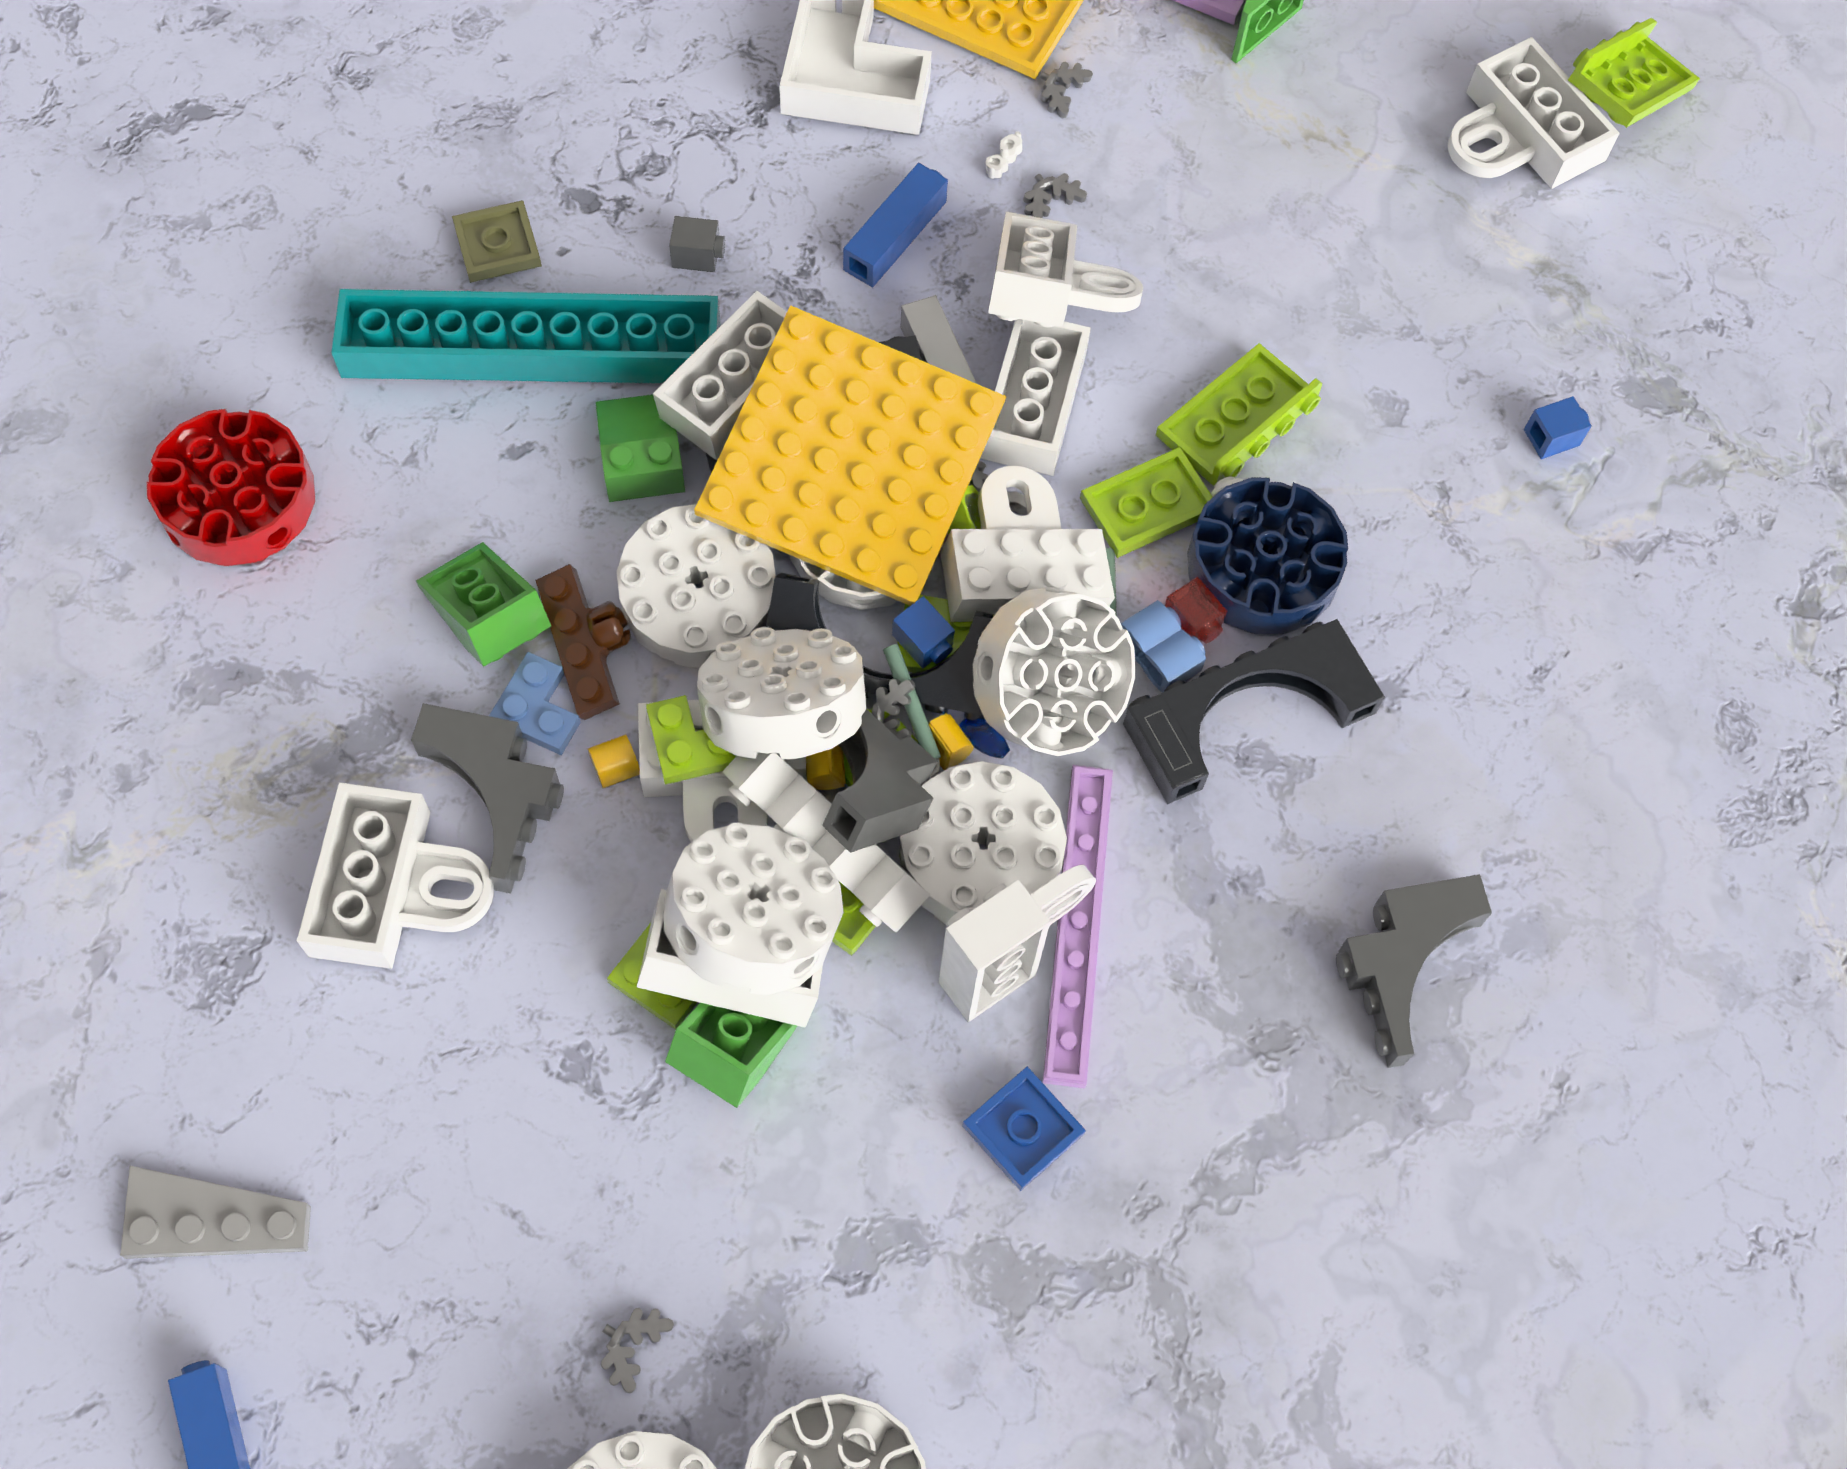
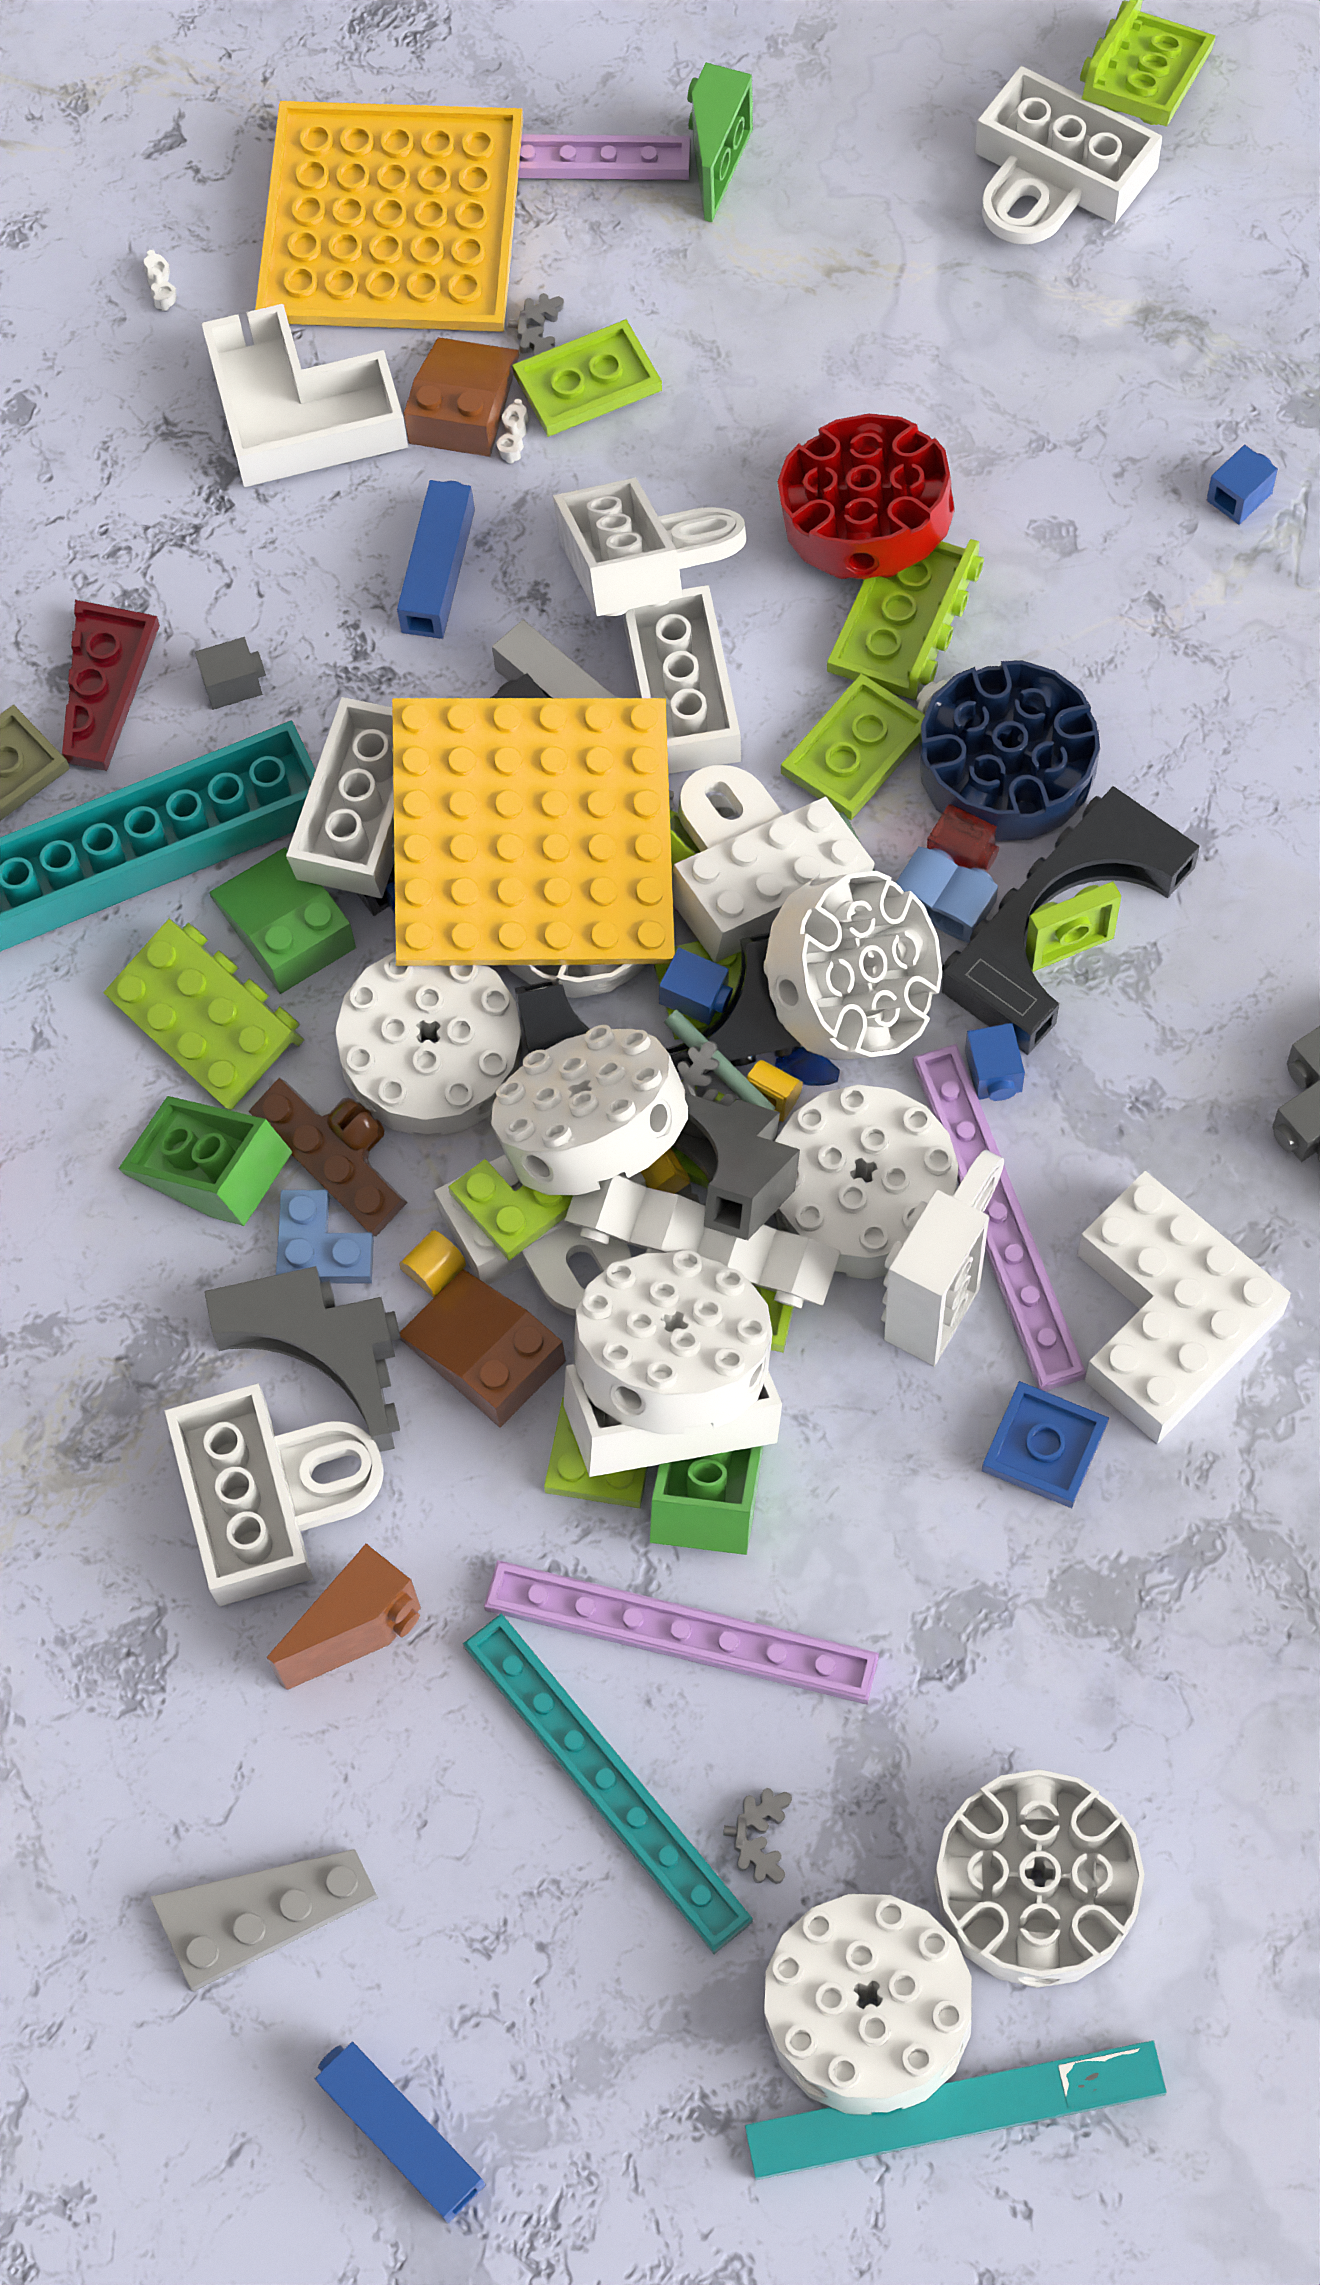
camera: 15 degrees left, 0 degrees up
(394, 1014) = (349, 1620): none -> dark orange slope
(534, 1247) = (608, 1784): none -> teal tile
(542, 489) = (203, 1012): none -> lime bracket
(607, 203) = (105, 671): none -> dark red wing
(618, 844) = (484, 1346): none -> dark orange slope
(658, 1148) = (682, 1632): none -> lavender tile
(976, 112) = (460, 396): none -> dark orange slope
(1059, 186) = (588, 441): flat silver animal -> none
(1080, 138) = (587, 377): none -> lime plate
(1135, 798) = (995, 1062): none -> blue brick
(1204, 1068) = (1195, 1300): none -> white brick
(1249, 715) = (1072, 925): none -> lime plate
(1250, 312) = (866, 496): none -> red brick

